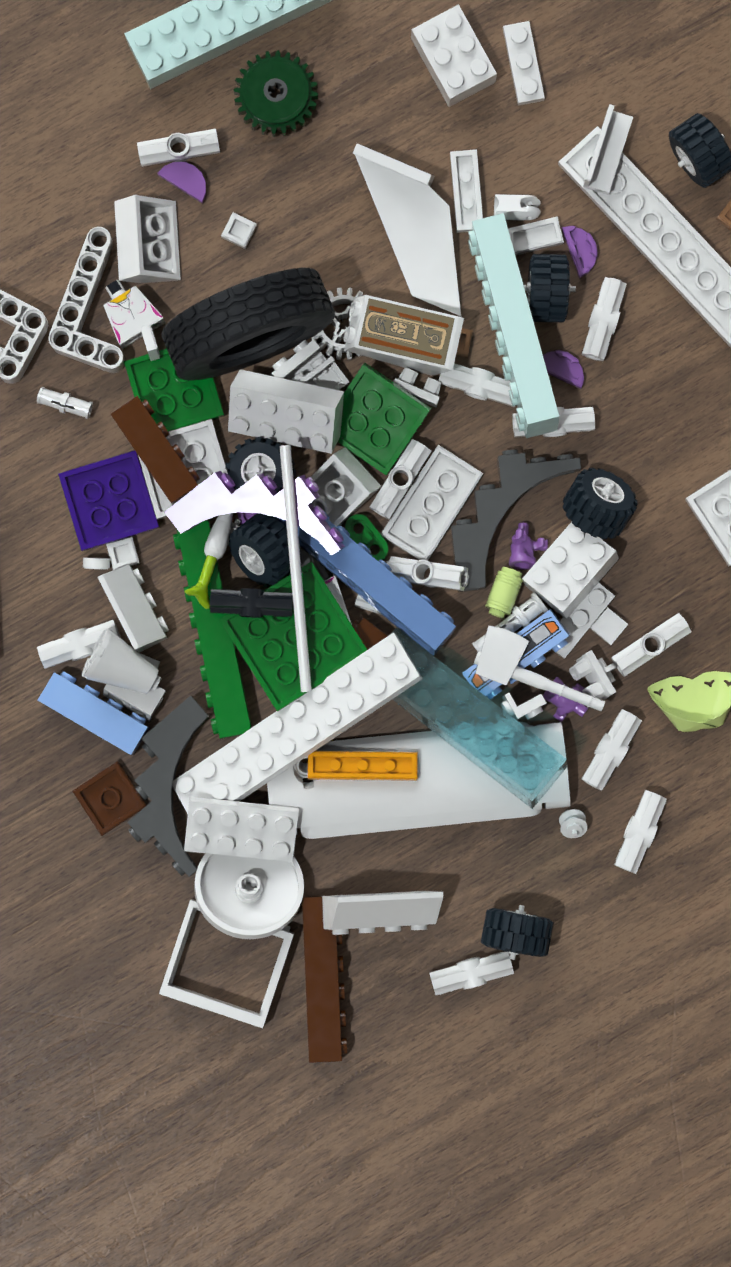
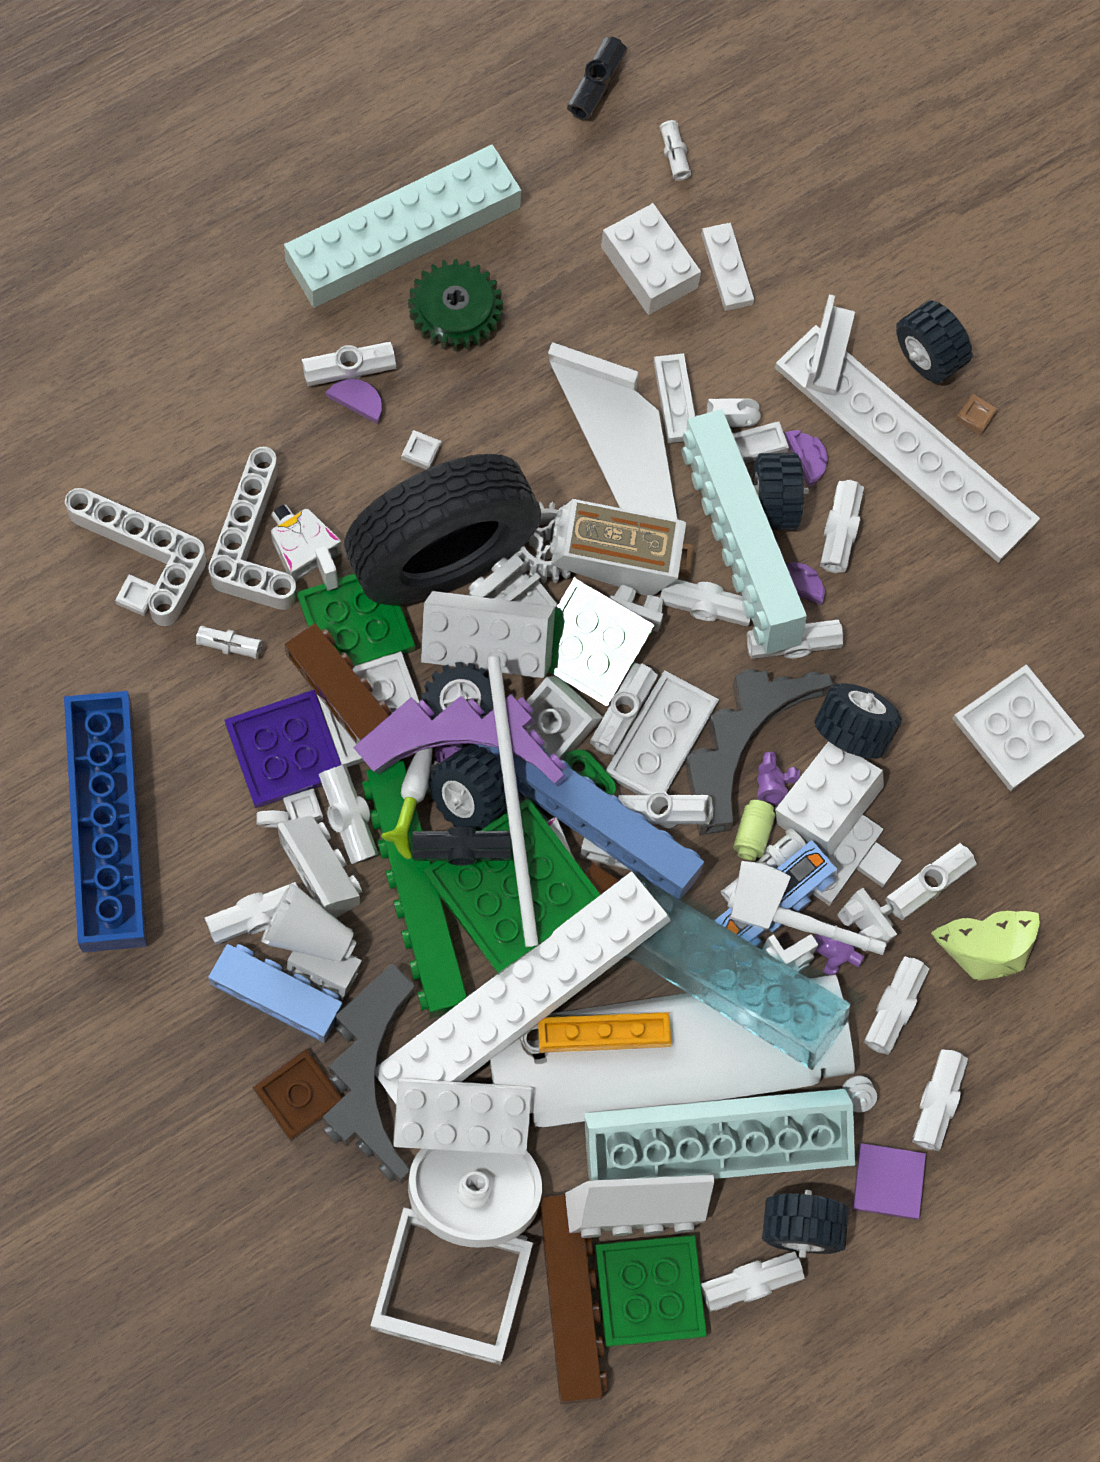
camera: 10 degrees left, 15 degrees down
(147, 239) = (317, 461): white slope -> none
(160, 563) = (348, 814): none -> white piece
(388, 975) = (650, 1291): none -> green plate
(452, 858) = (723, 1137): none -> light aqua brick
(591, 896) = (889, 1181): none -> medium lavender tile

